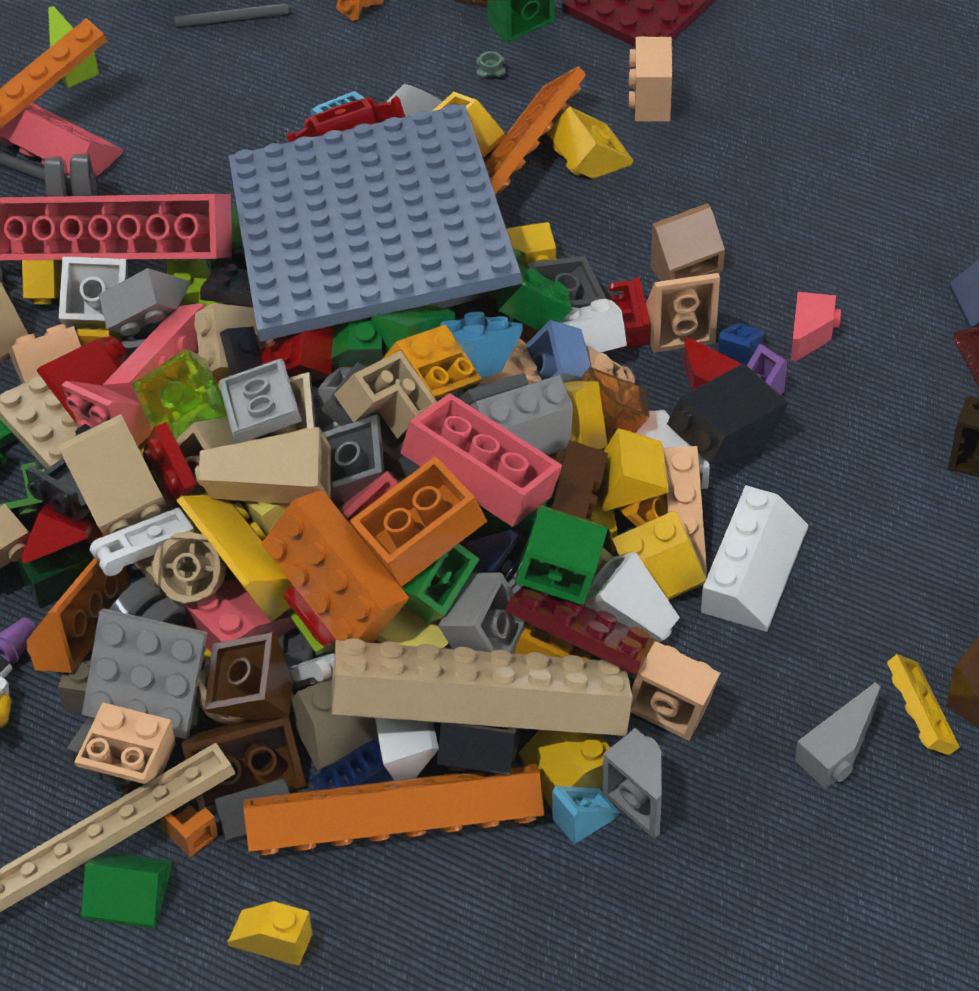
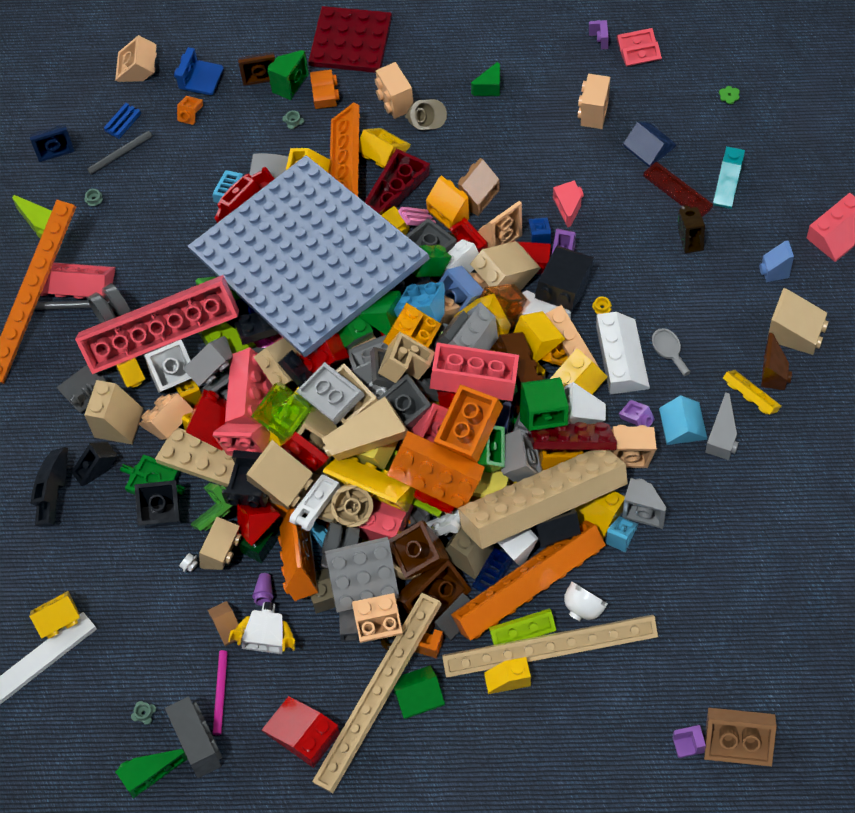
camera: 25 degrees left, 10 degrees up
(156, 53) = (90, 195): none -> sand green plate
(338, 874) = (523, 628): none -> lime plate
(369, 920) = (551, 645): none -> tan plate
(452, 881) = (583, 603): none -> white cylinder
(558, 43) = (323, 89): none -> orange brick
(565, 245) = (414, 216): none -> bright pink tile
(572, 195) = (397, 181): none -> dark red wedge
(628, 249) = (447, 203): none -> light orange slope
(652, 359) = (505, 265): none -> tan slope
(680, 128) = (427, 114): none -> dark tan piece
(723, 656) = (637, 414): none -> medium lavender bracket
(769, 480) = (601, 301): none -> yellow plate
(787, 697) = (682, 421): none -> medium azure slope
(798, 124) = (487, 83): none -> green slope
(834, 584) = (669, 347): none -> light grey piece
(937, 205) = (594, 101): none -> light nougat brick

